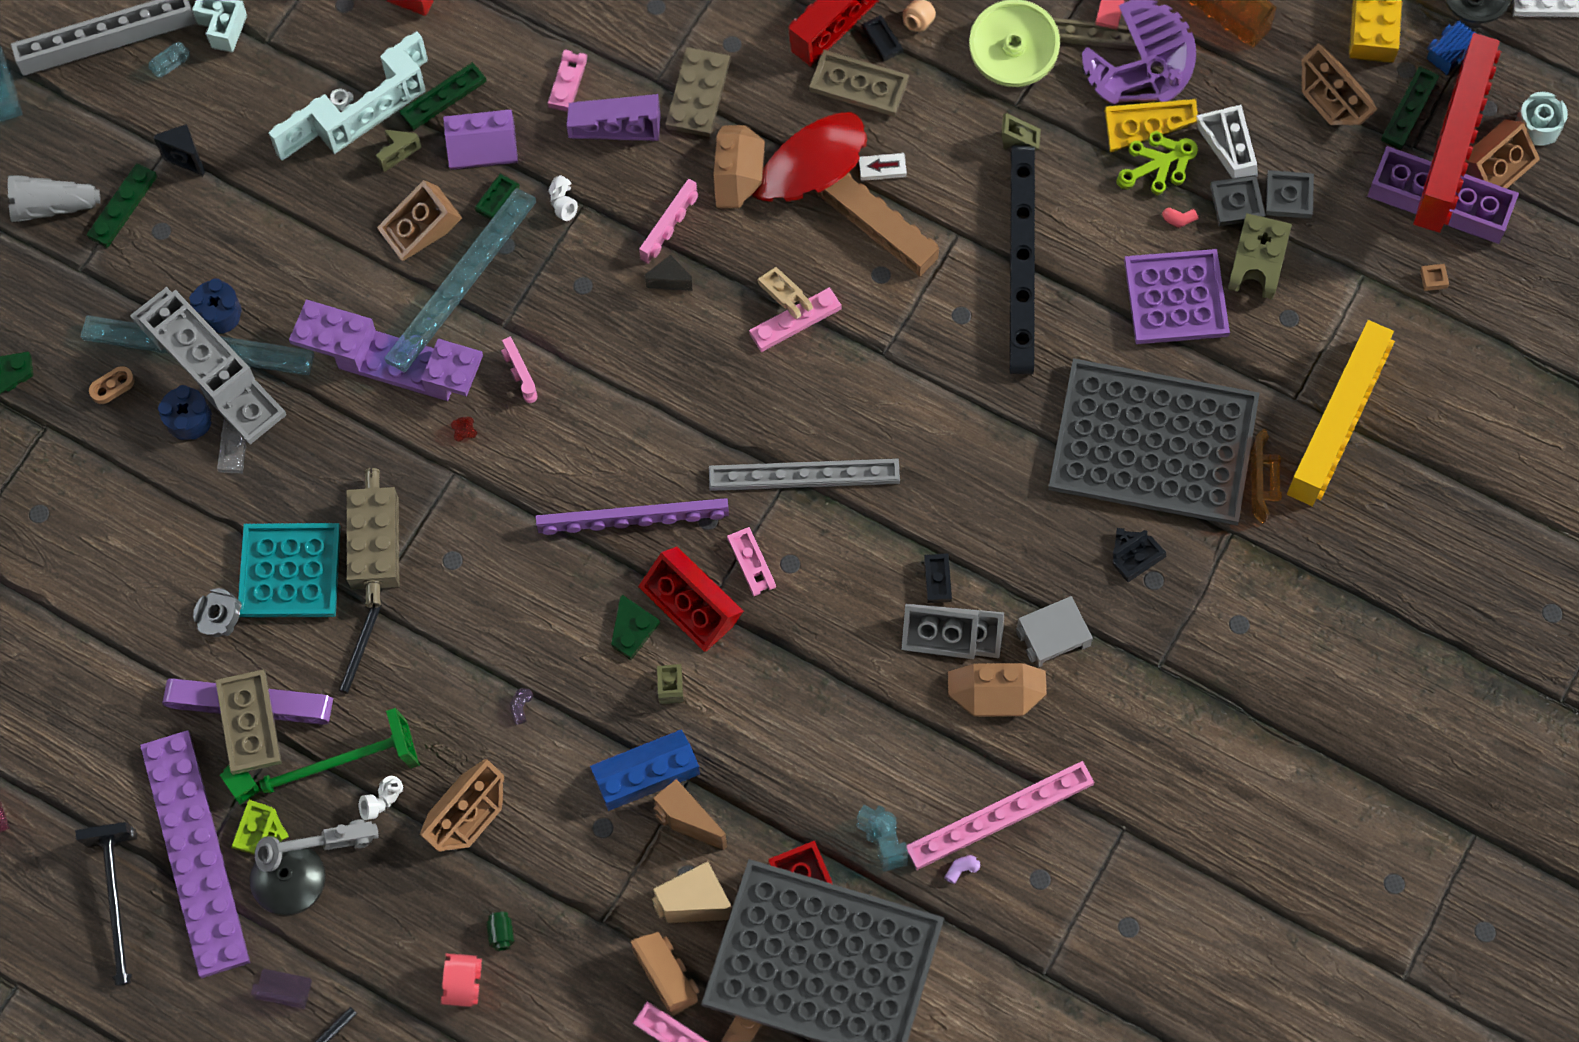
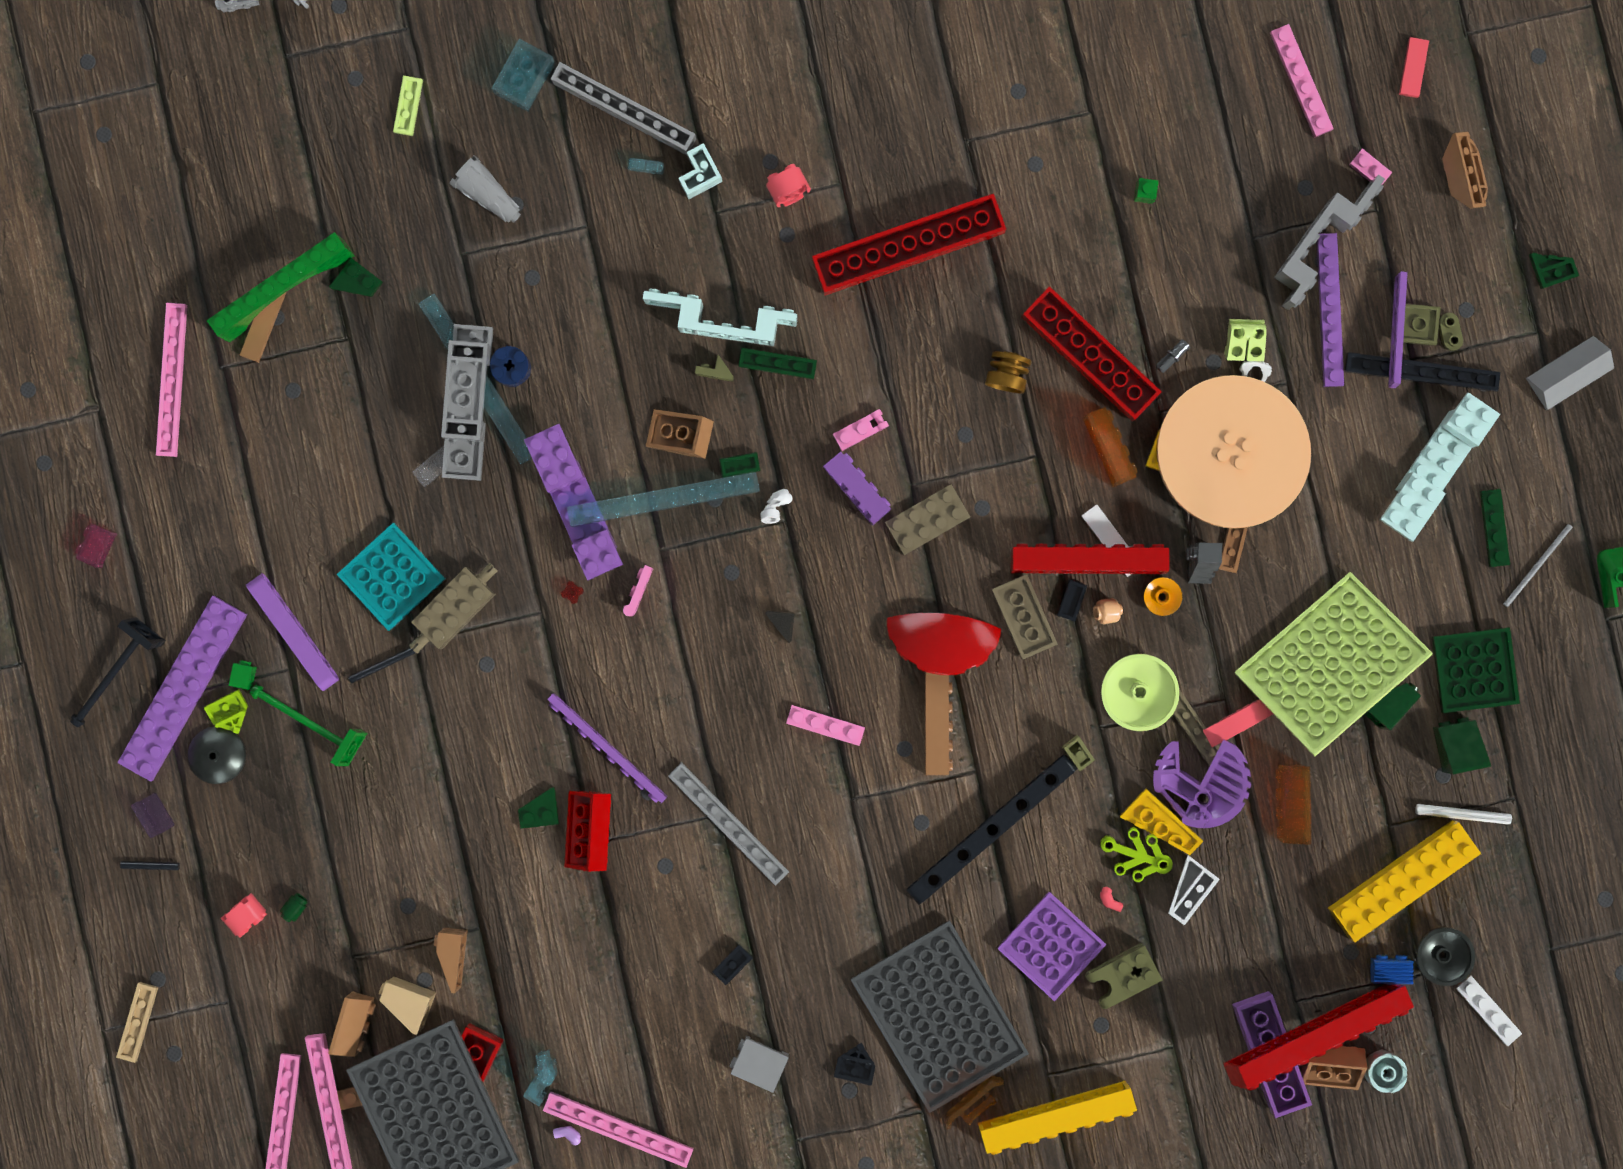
camera: 50 degrees right, 20 degrees up
(111, 384) = (406, 354): medium nougat plate -> none
(122, 205) = (525, 237): dark green plate -> none
(174, 410) = (416, 417): dark blue brick -> none
(179, 149) = (592, 242): black slope -> none
(227, 618) = (334, 567): plate -> none
(248, 722) = (275, 651): dark tan plate -> none
(341, 94) = (716, 296): white plate -> none
(357, 833) = (274, 774): light grey piece -> none
(388, 792) = (314, 766): white arm -> none
(465, 808) = (341, 820): medium nougat wedge -> none
(480, 139) = (768, 418): medium lavender slope -> none
(517, 704) = (434, 788): clear purple arm -> none
(645, 769) = (461, 900): blue slope -> none
(665, 226) = (827, 587): bright pink plate -> none
(670, 684) = (523, 868): olive slope -> none
(737, 165) = (898, 593): medium nougat wedge -> none
(751, 560) = (643, 843): bright pink plate -> none
(784, 291) = (835, 703): tan hinge -> none
(882, 166) = (979, 684): white tile -> none
(952, 631) = (705, 1004): light grey slope -> none
(997, 688) = (693, 1061): medium nougat wedge -> none
(1236, 198) = (1154, 927): dark grey plate -> none
(1289, 194) = (1188, 955): dark grey plate -> none
(1334, 90) = (1289, 925): medium nougat wedge -> none
(1410, 108) = (1321, 979): dark green plate -> none
(1434, 277) = (1209, 1094): medium nougat plate -> none

